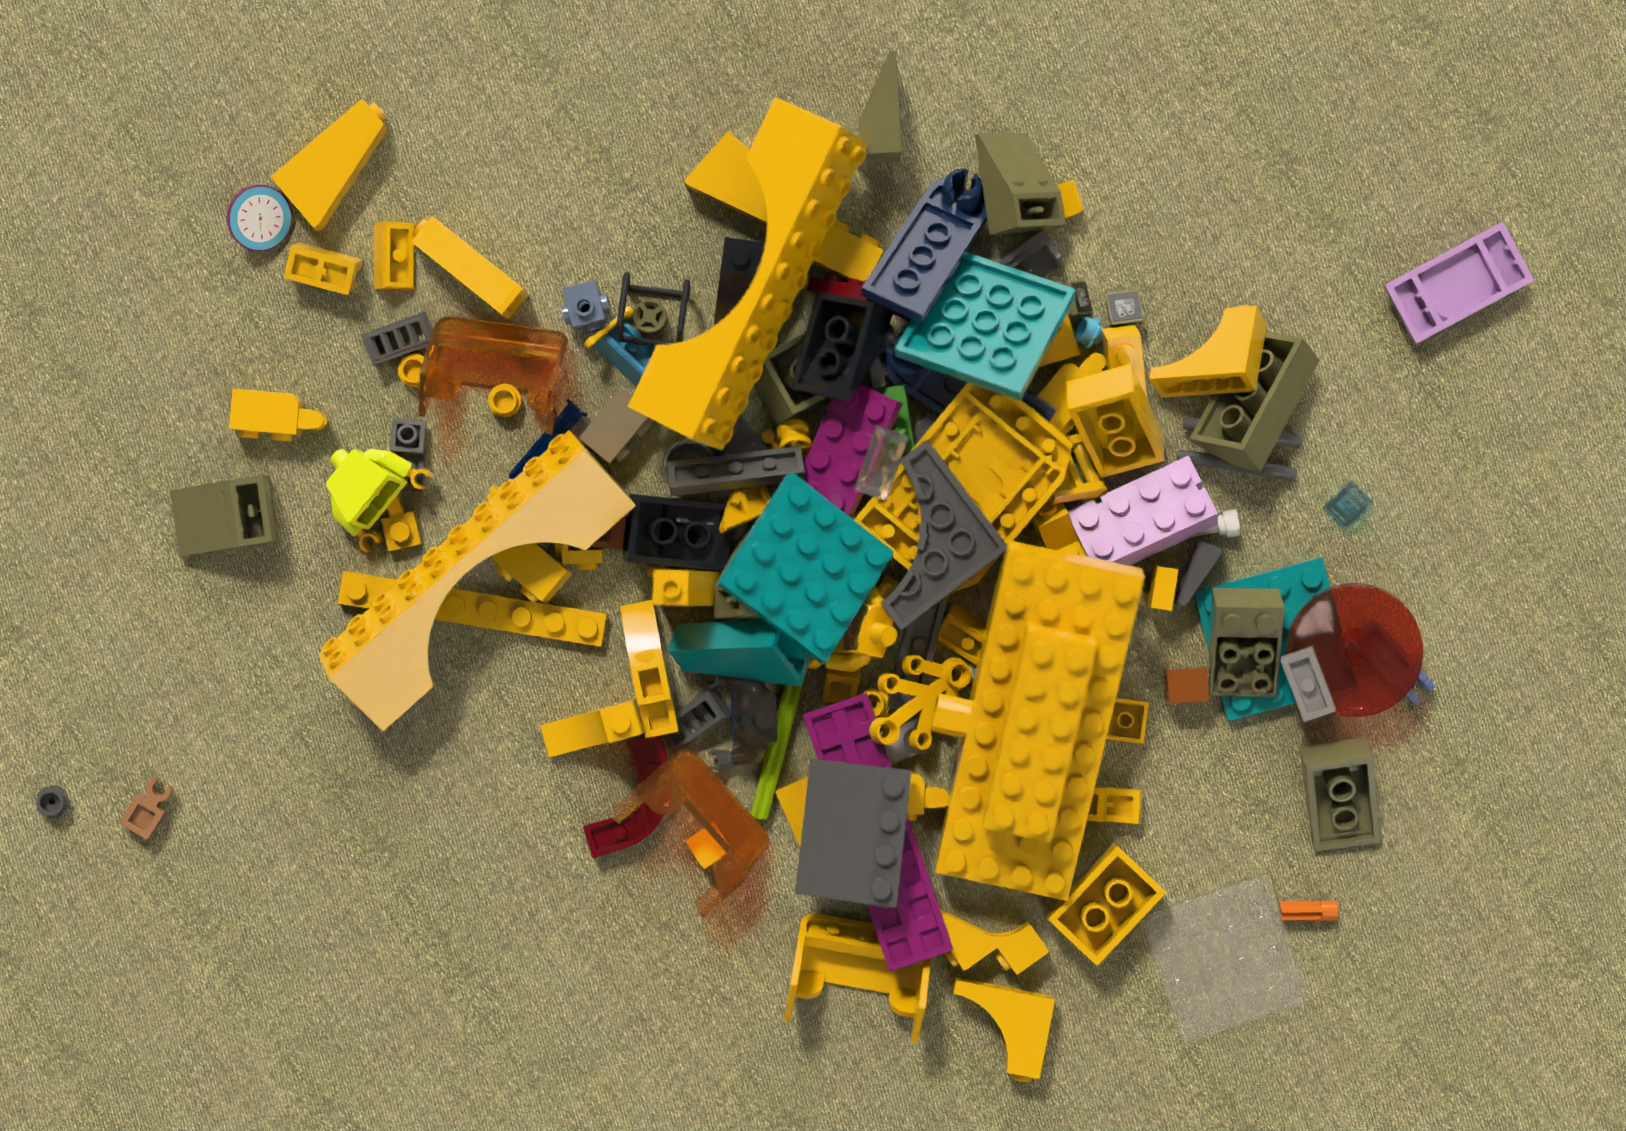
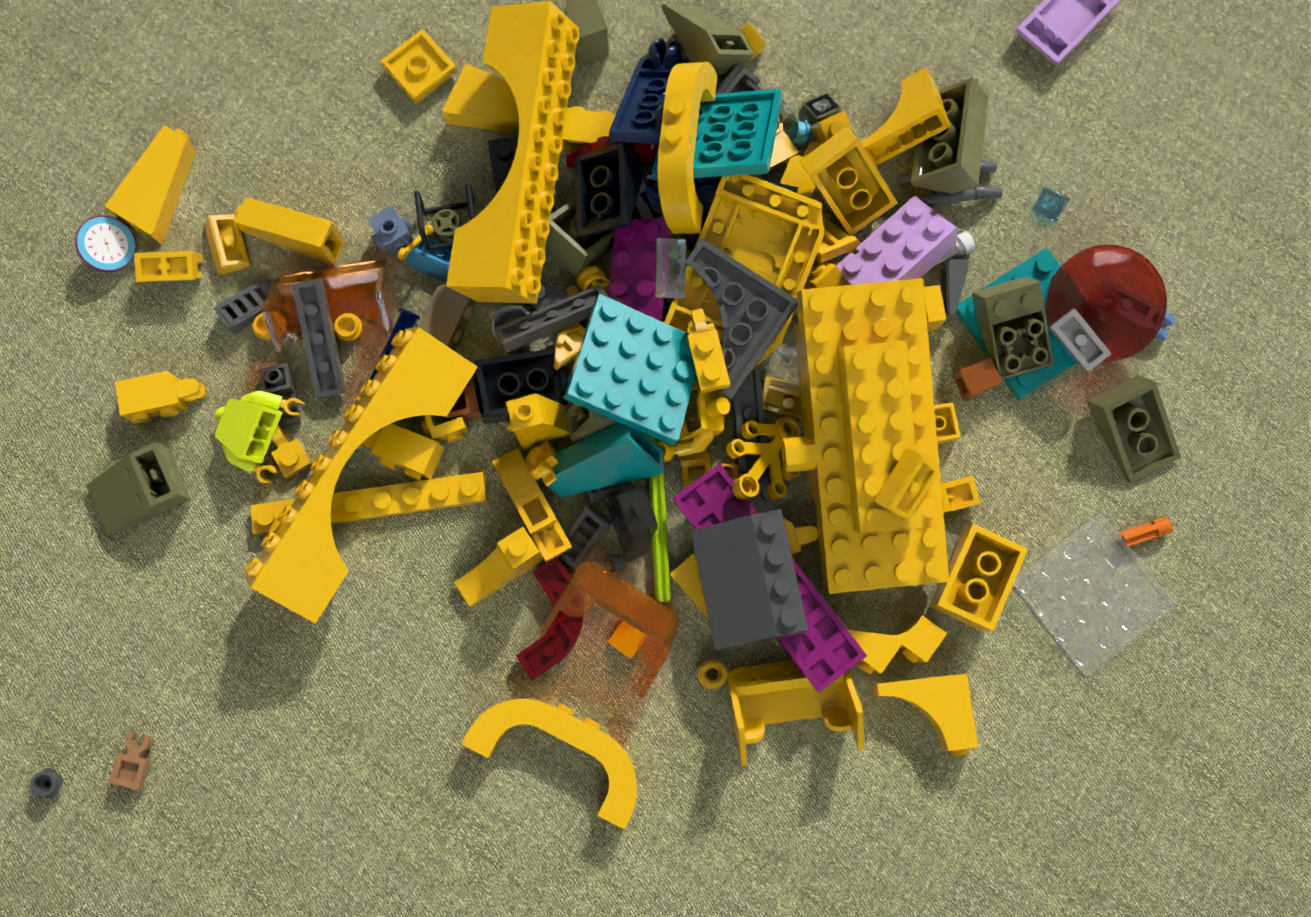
camera: 20 degrees left, 10 degrees down
(469, 408) = (319, 338): none -> dark grey plate
(611, 915) = (585, 735): none -> yellow arch
(672, 629) = (541, 463): none -> yellow plate
(673, 109) = (419, 66): none -> yellow plate
(786, 922) = (702, 674): none -> yellow plate
(889, 574) = (707, 354): none -> yellow hinge
(941, 310) = (685, 90): none -> yellow arch
(1046, 795) = (907, 484): none -> yellow slope

